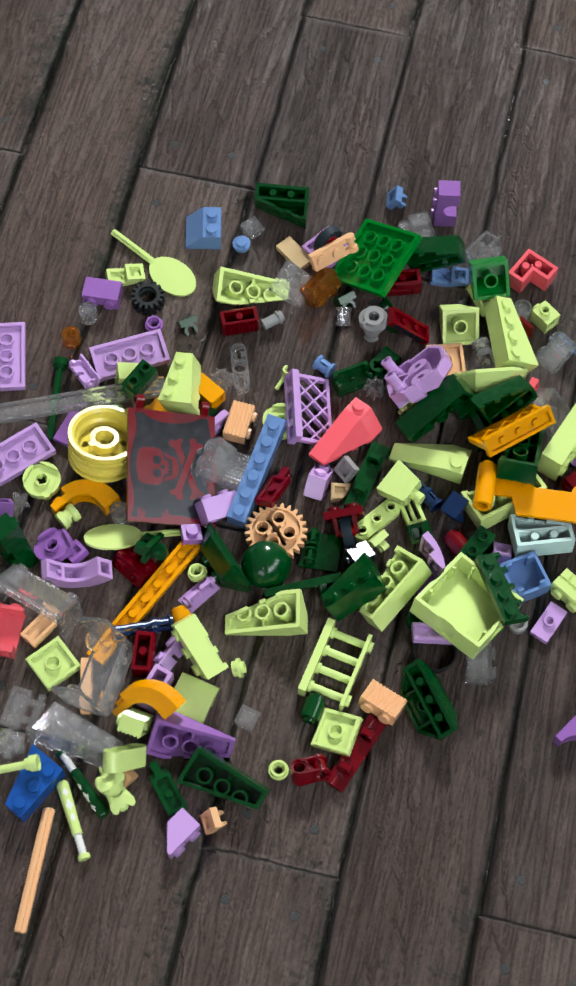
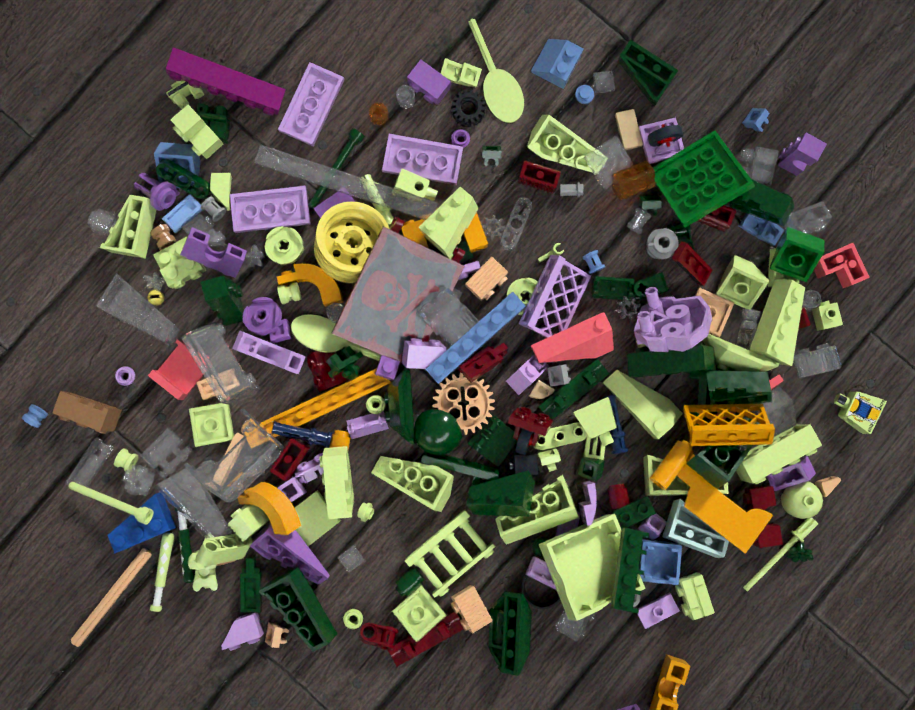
camera: 25 degrees right, 20 degrees up
(89, 377) = (373, 167): lavender hinge -> none
(139, 379) = (411, 198): dark green hips -> none
(333, 251) = (664, 151): light nougat plate -> none
(454, 506) = (635, 464): dark blue panel -> none

